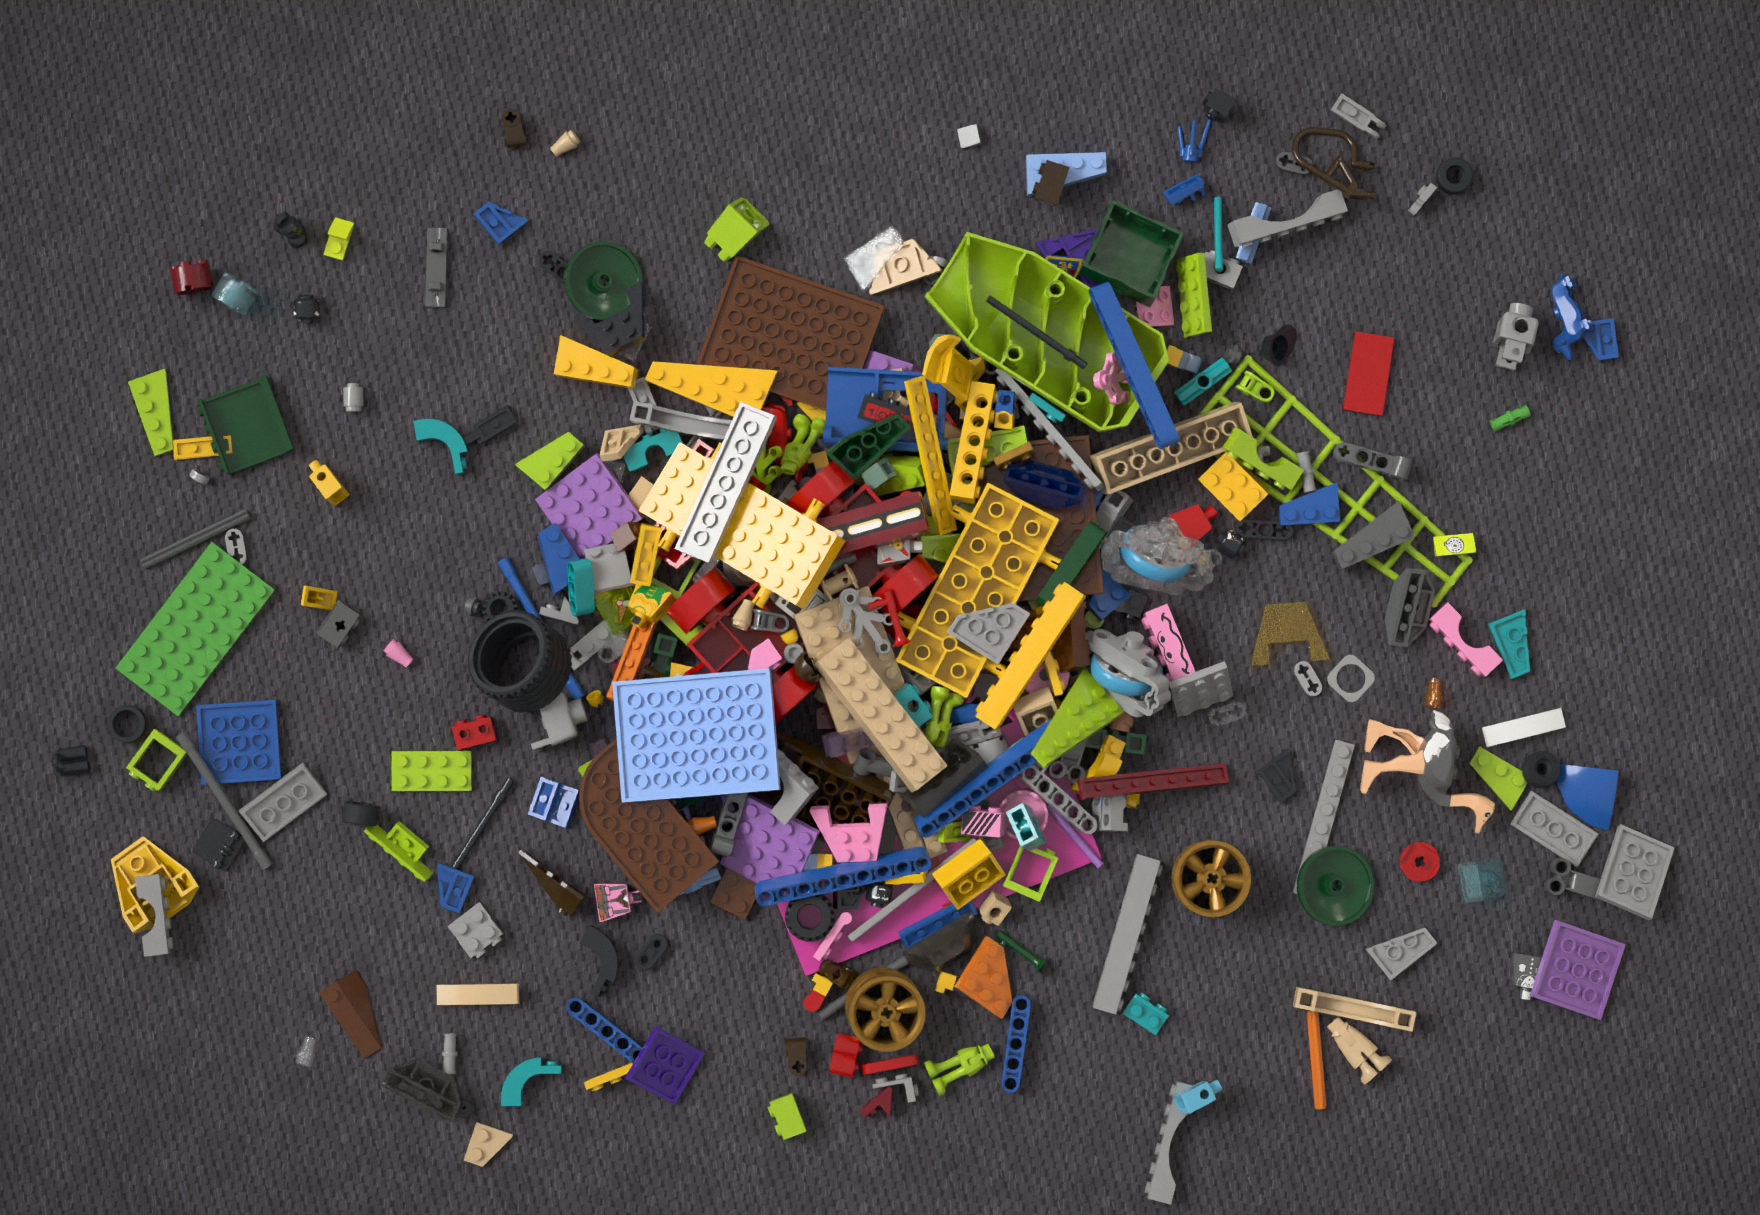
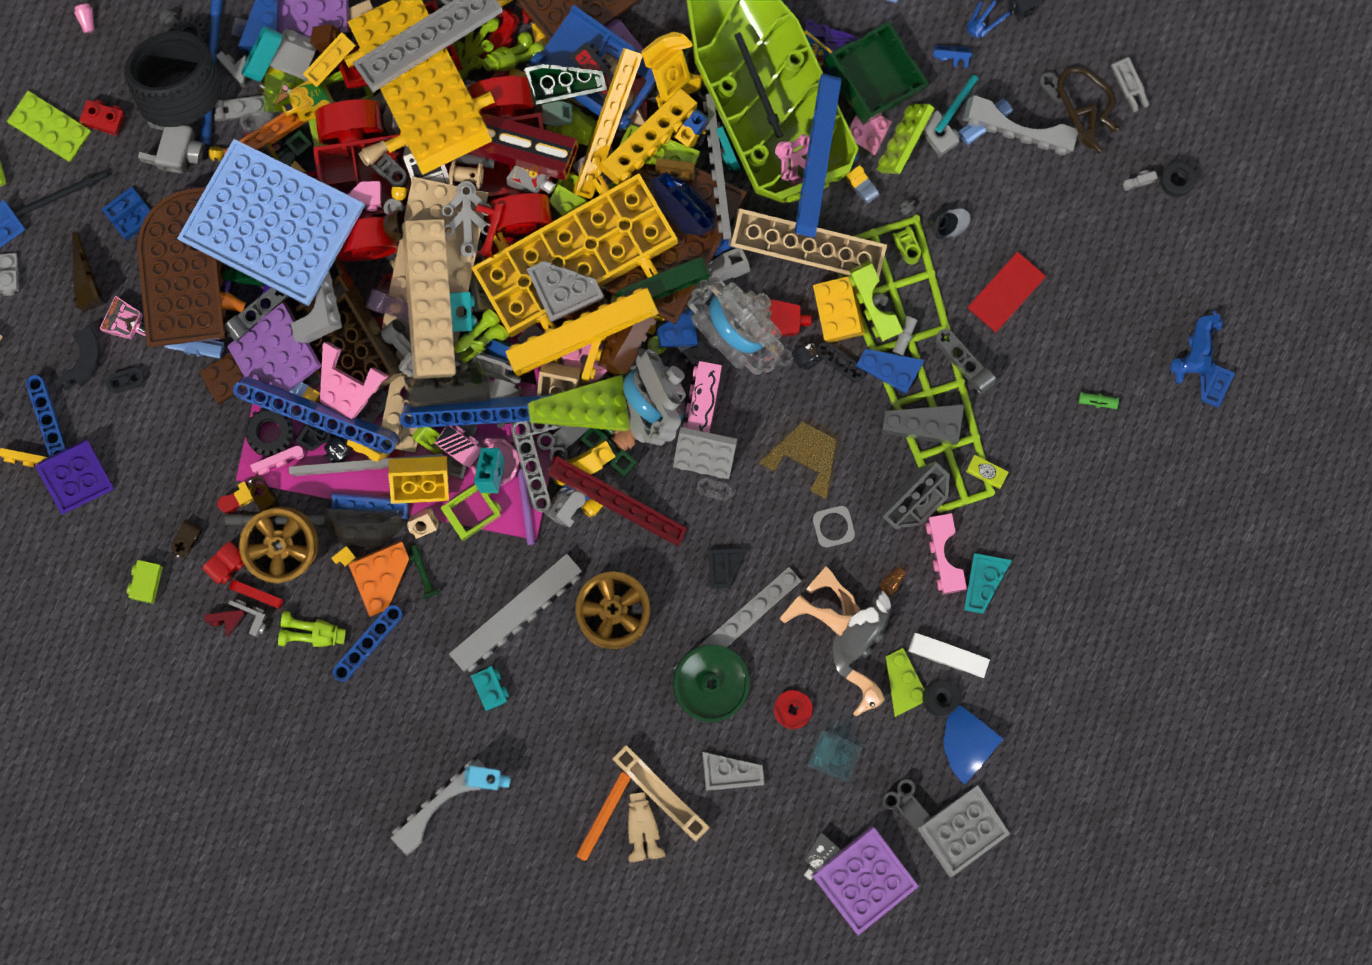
camera: 30 degrees right, 5 degrees down
(1213, 374) = (881, 212): teal piece -> none
(1311, 675) = (793, 502): light grey beam -> none
(1511, 343) = (1145, 334): light grey piece -> none
(1554, 828) = (920, 754): light grey tile -> none

